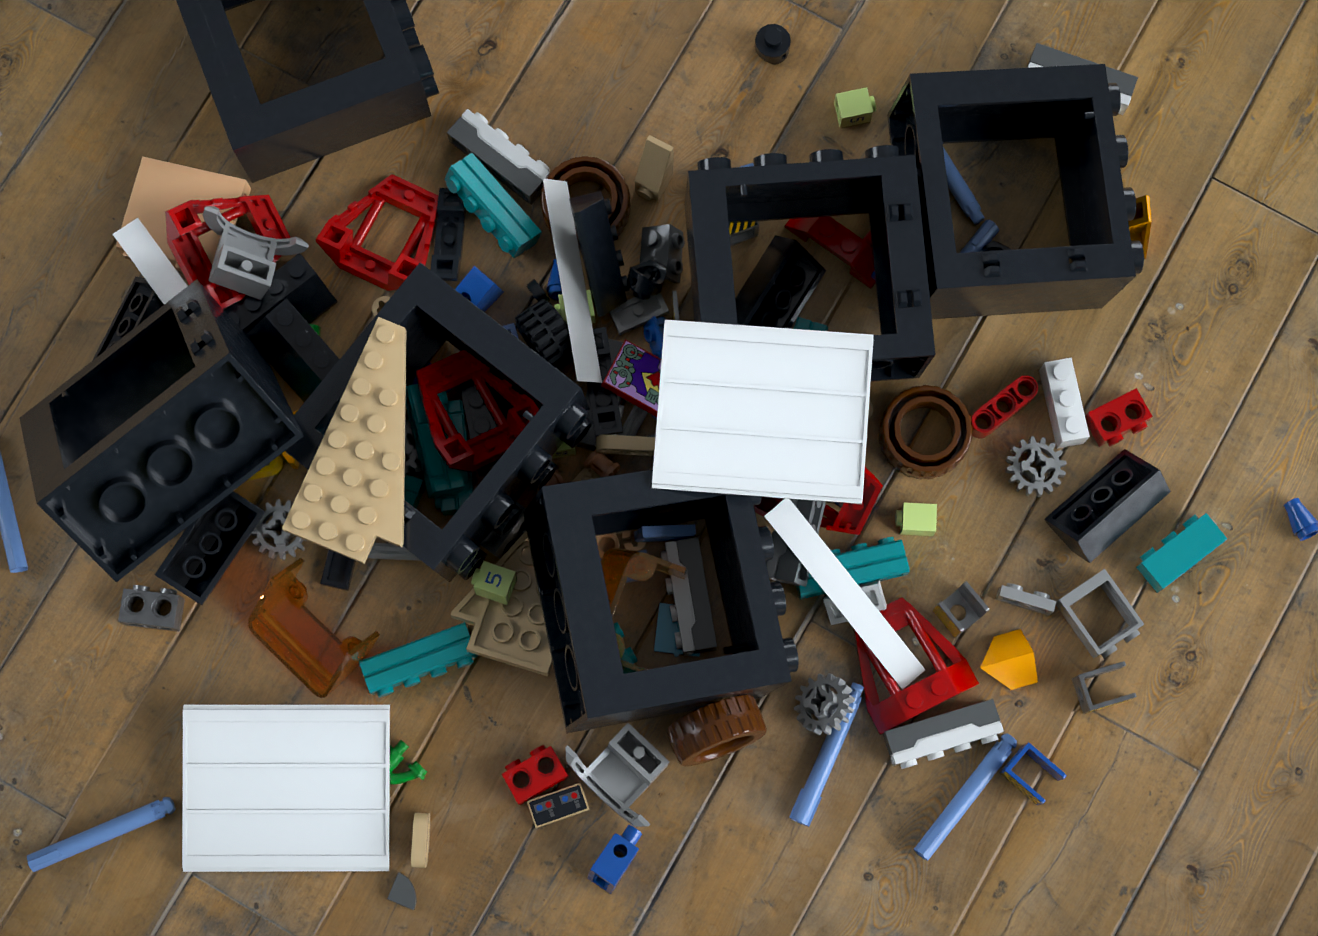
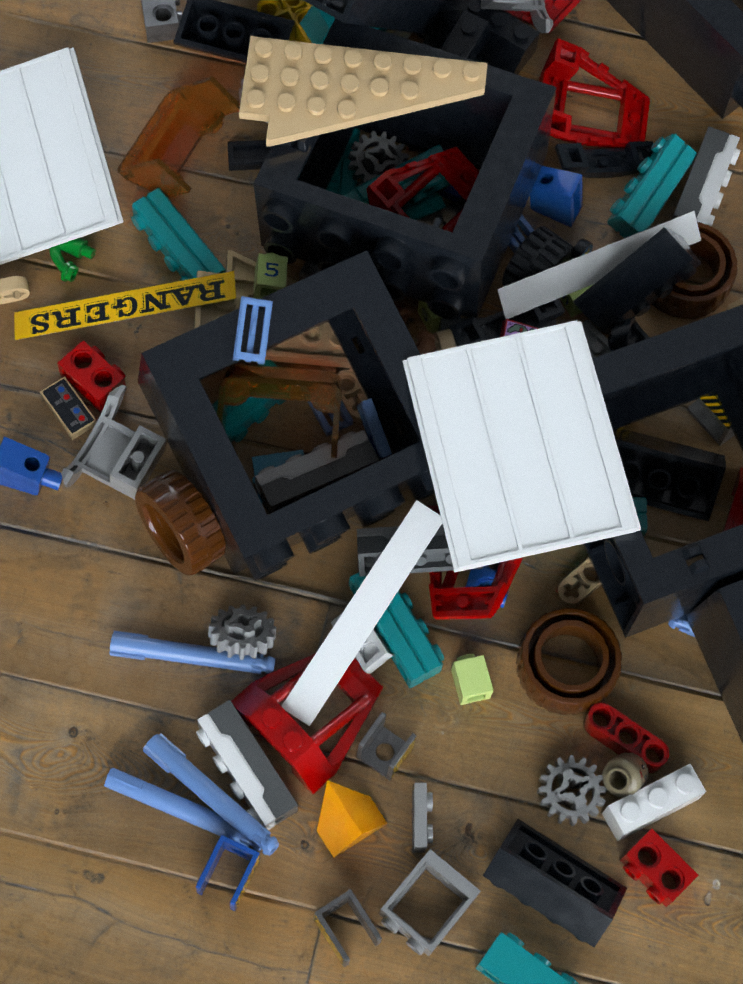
camera: 65 degrees right, 10 degrees down
(476, 726) = (125, 305): none -> yellow sticker
(616, 623) = (248, 356): none -> medium blue tile
(922, 794) = (174, 760): none -> medium blue piece
(1037, 418) = (625, 774): none -> dark tan head

